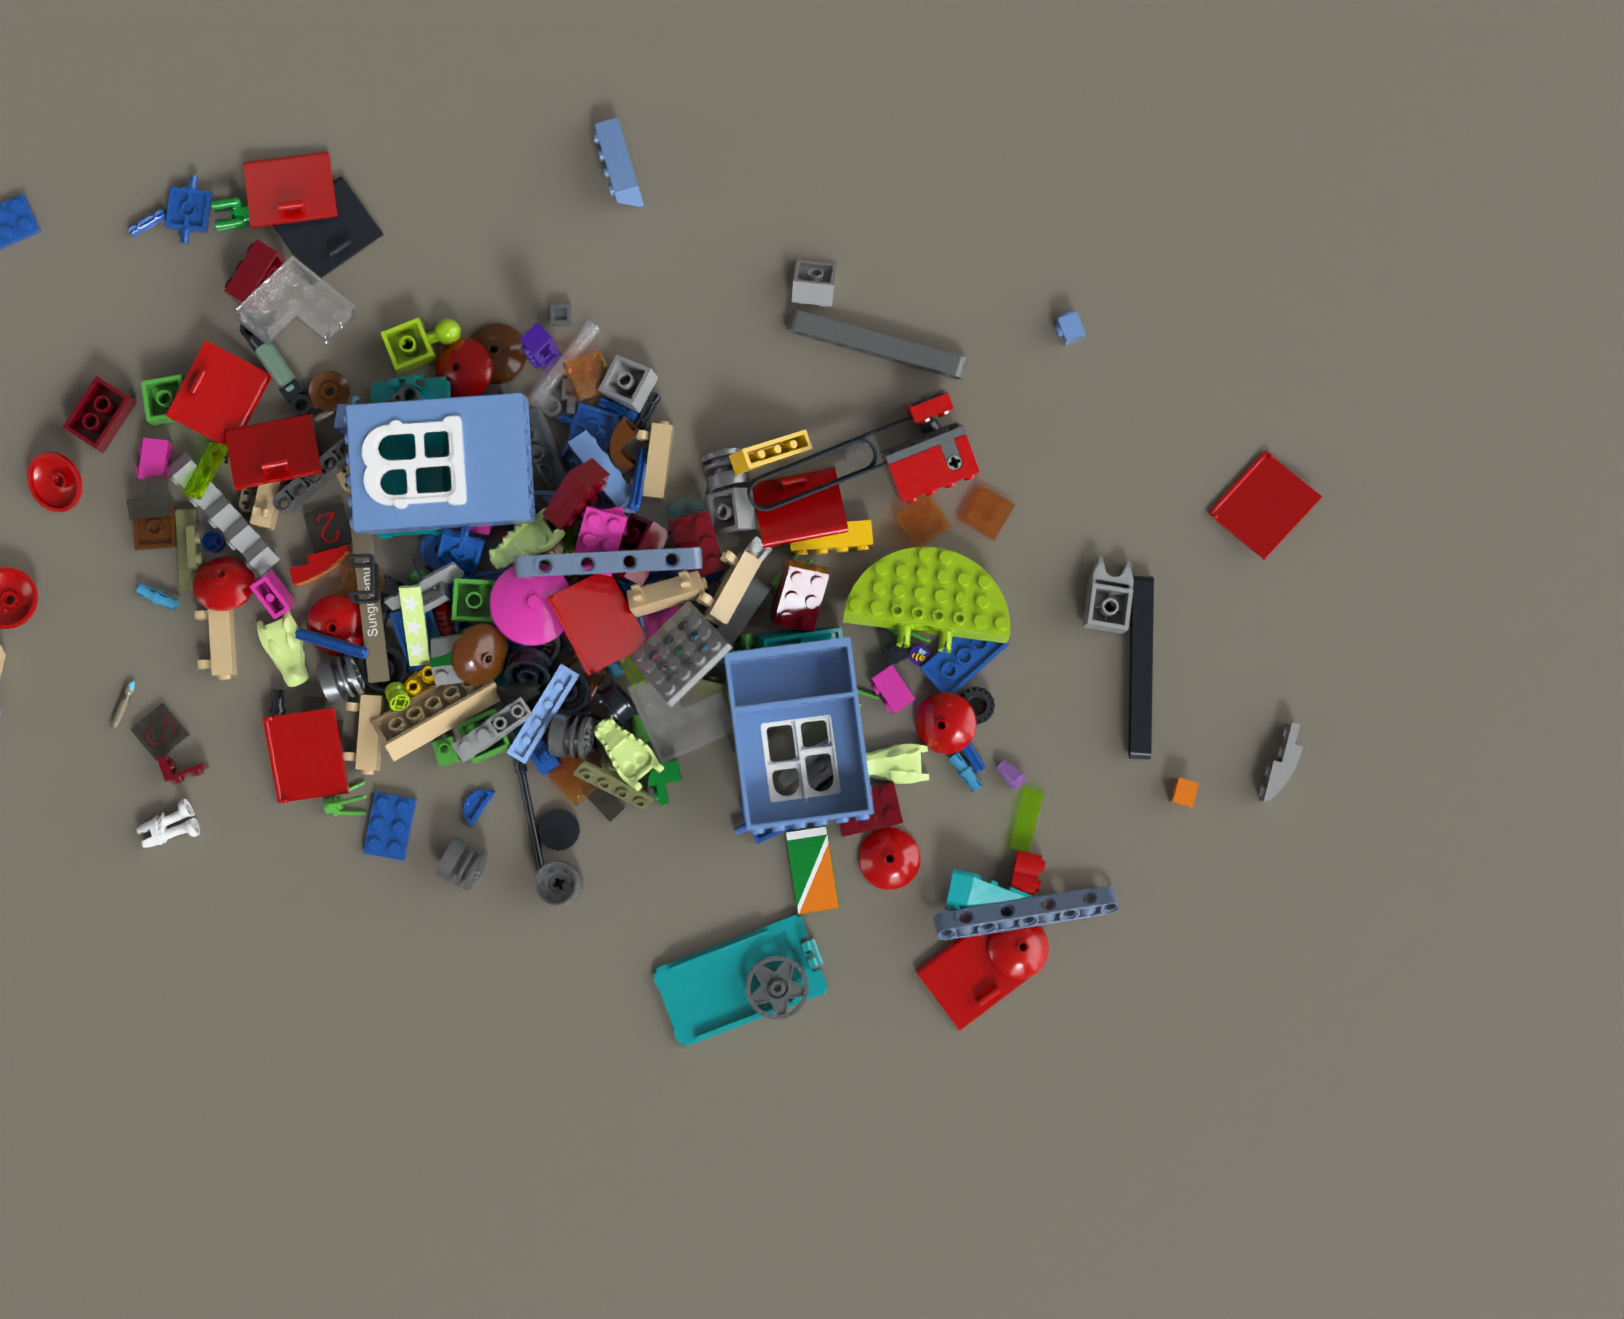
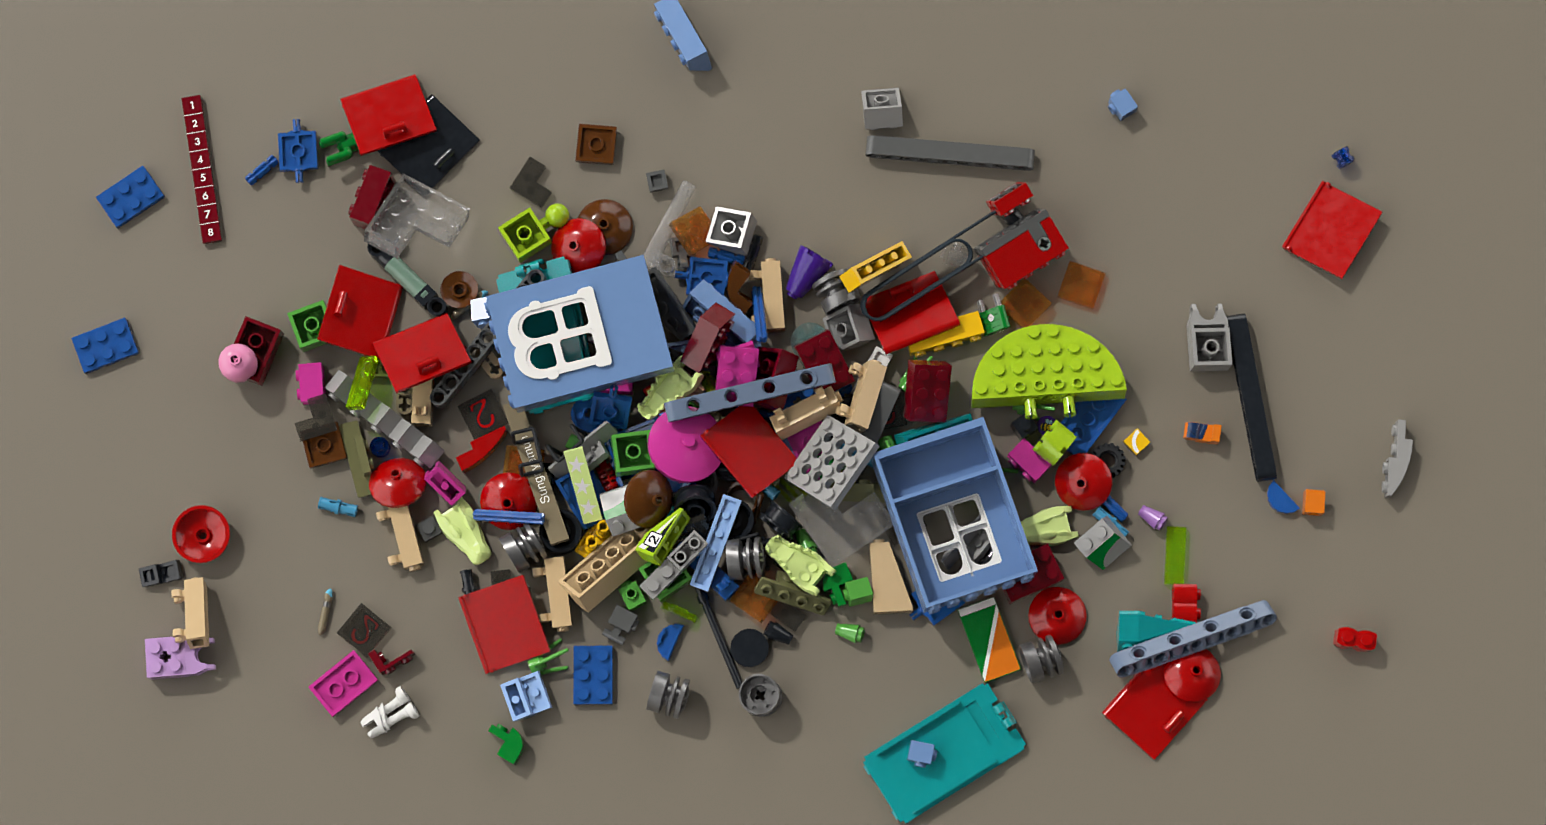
camera: 10 degrees left, 5 degrees down
(47, 485) = (217, 426): red dish -> none
(77, 424) = (243, 368): none -> bright pink cylinder
(84, 209) = (201, 169): none -> dark red tile
(126, 784) = (343, 683): none -> dark pink plate
(248, 638) = (429, 529): none -> dark grey plate
(291, 881) = (513, 743): none -> green brick
(314, 835) = (526, 696): none -> light blue brick
(397, 696) = (578, 553): lime wheel -> none
(423, 291) = (526, 183): none -> clear smoke tile
(430, 775) = (622, 621): none -> dark grey brick
(486, 698) = (661, 538): none -> lime slope
(494, 778) = (679, 611): none -> clear neon green tile
(504, 263) = (596, 144): none -> reddish brown plate
(539, 347) = (647, 212): dark purple brick -> none
(591, 820) = (777, 633): none -> black cone
(670, 835) = (851, 632): none -> bright green cone
(683, 793) = (857, 592): none -> bright green brick
(699, 440) = (805, 271): none -> dark purple cone
(715, 978) = (921, 753): none -> medium blue brick
(717, 791) = (887, 583): none -> tan slope
(777, 987) = (979, 751): dark grey wheel -> none
(862, 903) = (1041, 659): none -> flat silver wheel
(886, 531) = (994, 319): none -> green piece
(922, 677) = (1054, 443): none -> lime brick
(952, 792) = (1103, 543): none -> light grey slope
(1010, 691) = (1136, 441): none -> yellow tile
(1082, 695) = (1202, 432): none -> leg
(1149, 782) = (1280, 500): none -> blue tile
(1193, 944) = (1350, 638): none -> red brick
(1293, 430) = (1343, 157): none -> clear blue wheel

